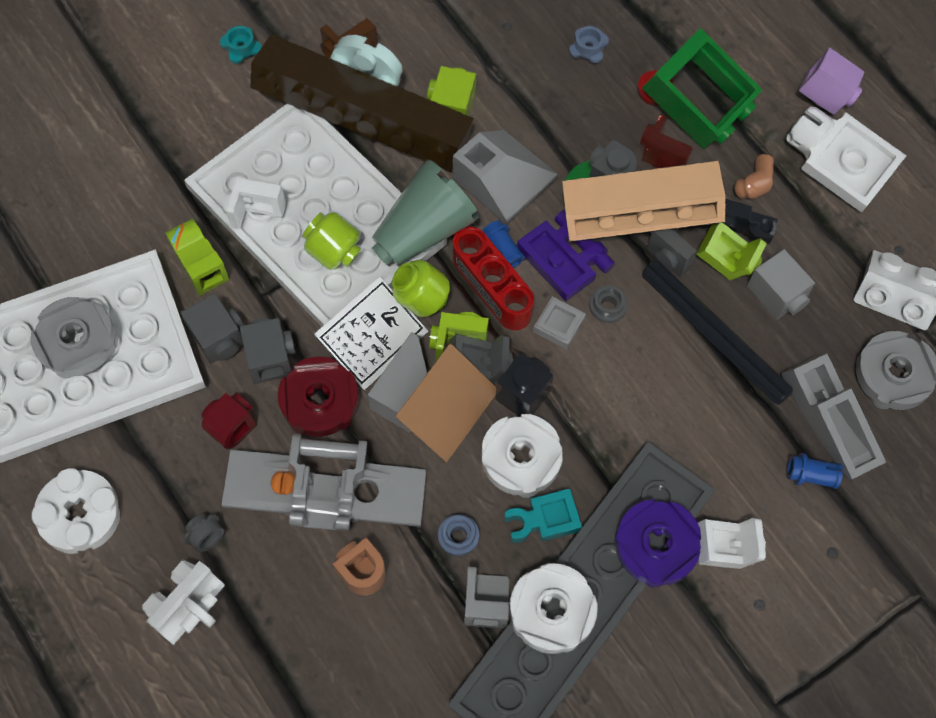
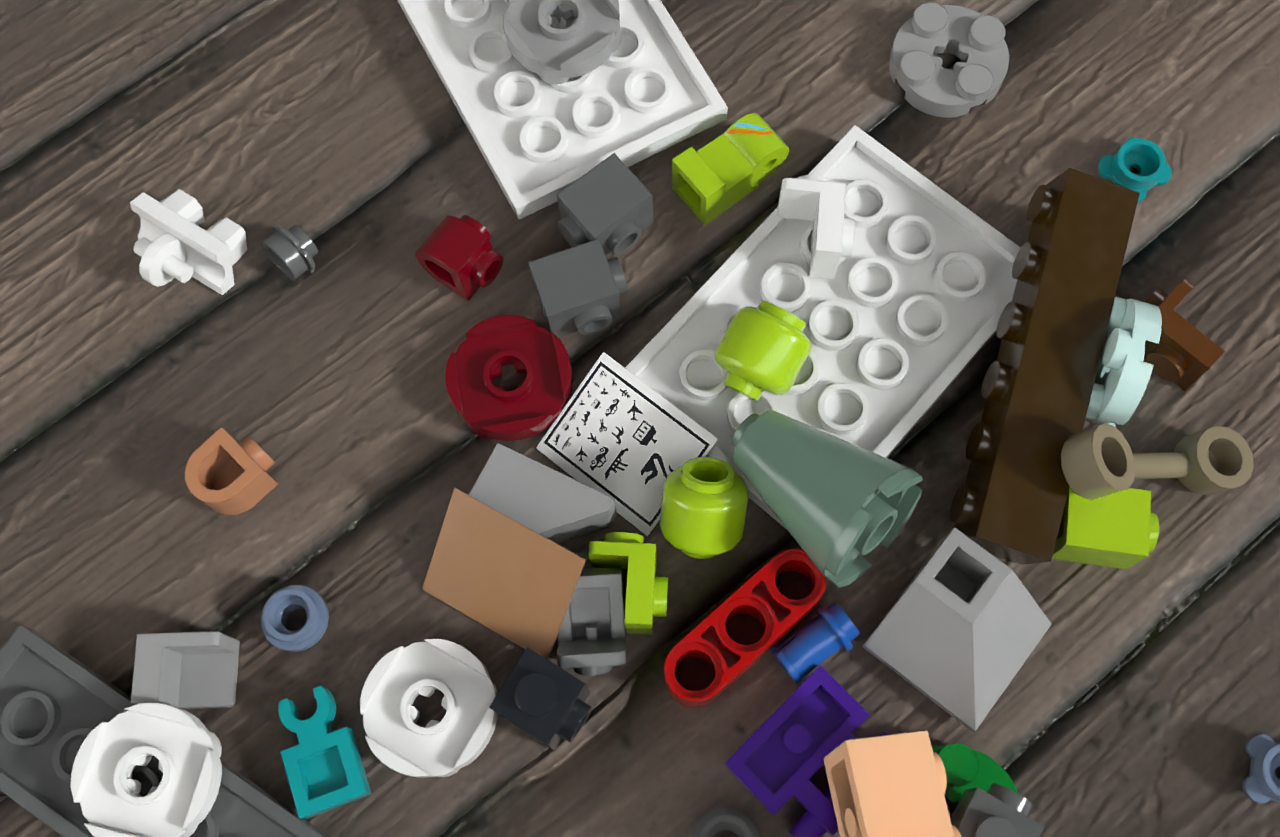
camera: 90 degrees right, 5 degrees up
(83, 533) = (314, 60): white plate -> none
(140, 109) = (953, 30): none -> light grey plate
(318, 500) = (339, 409): light grey piece -> none
(424, 44) = (1204, 462): none -> dark tan piece
(559, 322) = (682, 756): light grey tile -> none

